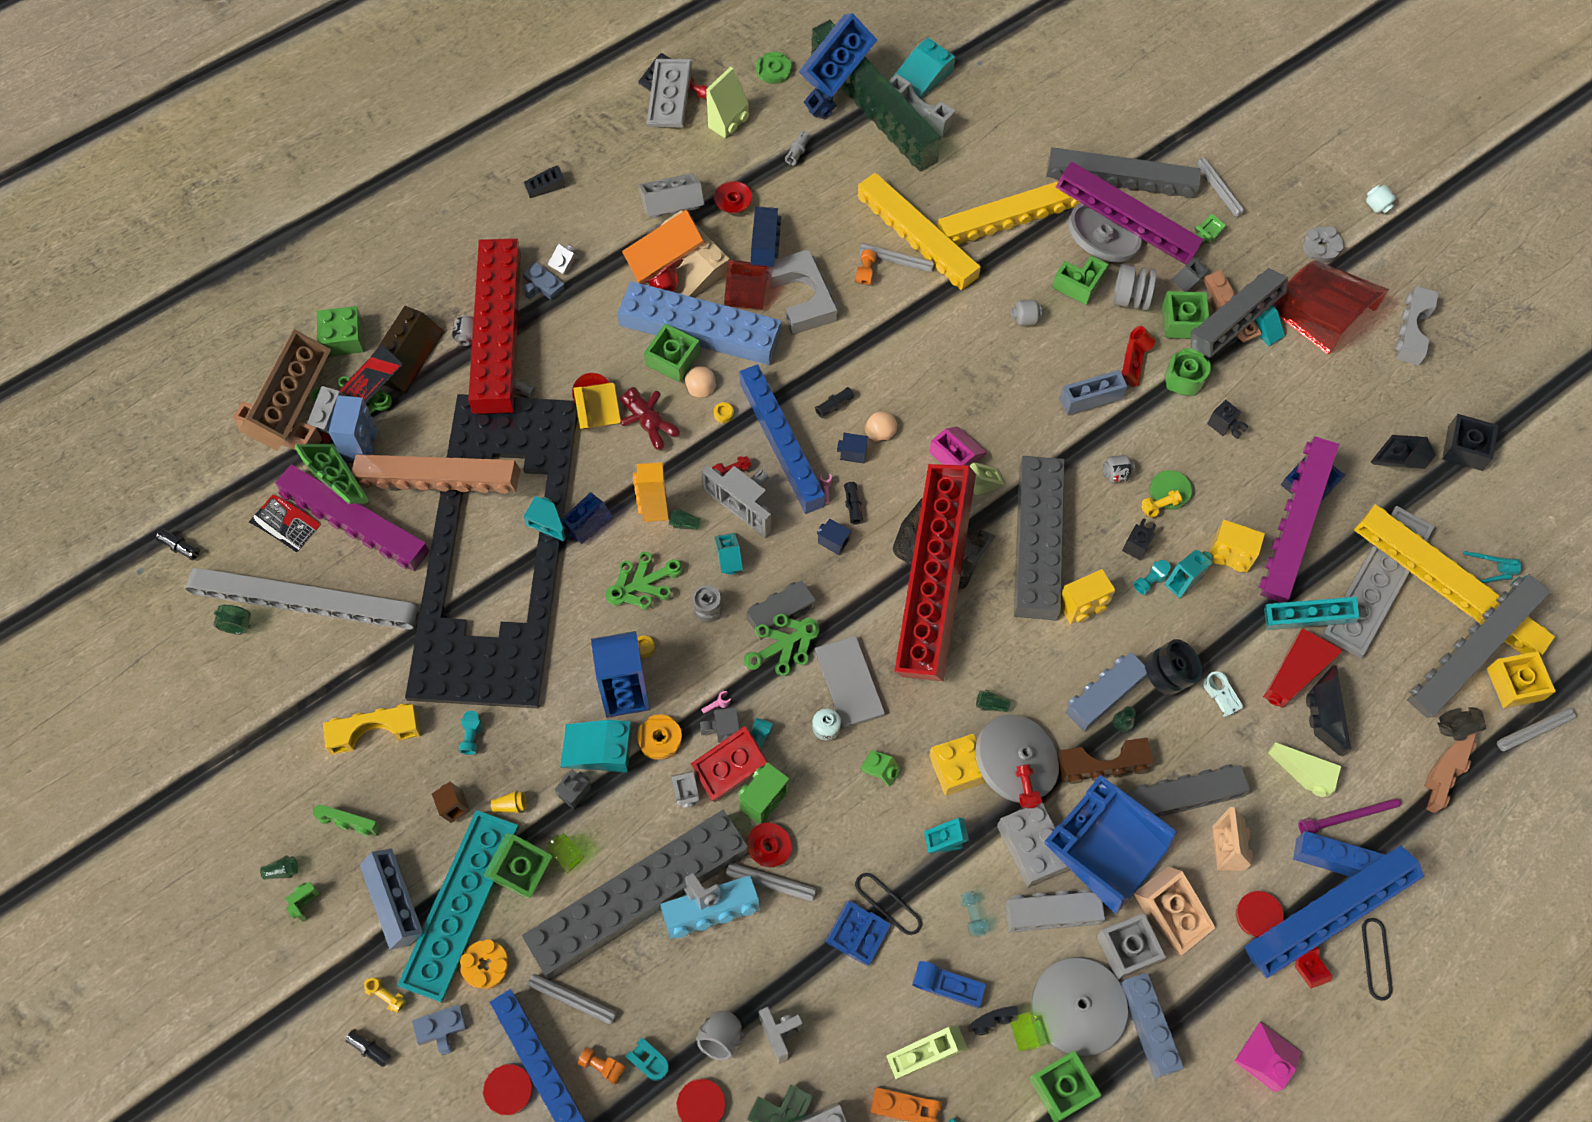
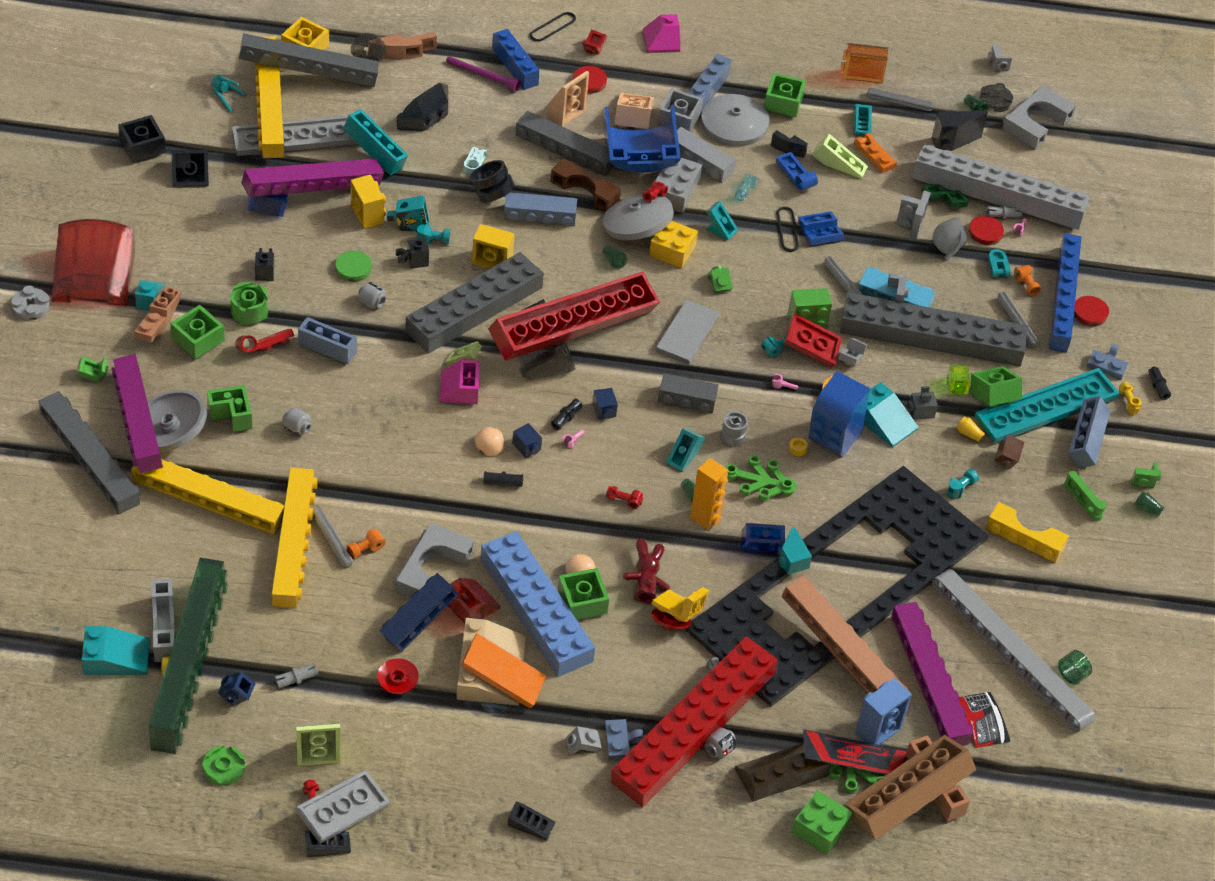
camera: 140 degrees left, 15 degrees down
(177, 544) = (1078, 759): black pin -> none
(323, 409) = (887, 752): light grey brick -> none
(332, 470) = (926, 703): bright green wedge -> none
(497, 967) = (1060, 363): light orange plate -> none
(667, 278) = (527, 648): red piece -> none
(671, 195) = (450, 706): light grey brick -> none
(723, 412) = (587, 538): yellow tile -> none
(725, 724) = (792, 364): dark grey brick -> none
(740, 495) = (642, 464): light grey brick -> none
(775, 838) = (836, 289): red dish -> none
(782, 439) = (569, 484): blue brick -> none
(785, 642) = (684, 369): bright green plant -> none
(826, 724) = (730, 316): light aqua head -> none
(838, 55) = (192, 681): blue slope -> none
(1030, 1032) = (777, 121): clear neon green brick -> none
(1125, 719) = (548, 187): clear green cone -> none
(1134, 286) = (206, 369): light grey wheel -> none
(1151, 507) = (382, 263): yellow bar -> none
(1190, 274) = (154, 350): dark grey brick -> none
(1220, 187) = (35, 391): light grey axle -> none
(1238, 312) = (174, 288): dark grey brick -> none
(1300, 666) = (418, 135): red slope -> none
(1308, 770) = (476, 95): yellowish green slope -> none
(1334, 911) = (559, 38): blue brick -> none
(1412, 343) = (40, 221): light grey arch -> none
(1536, 729) = (332, 27): light grey axle -> none

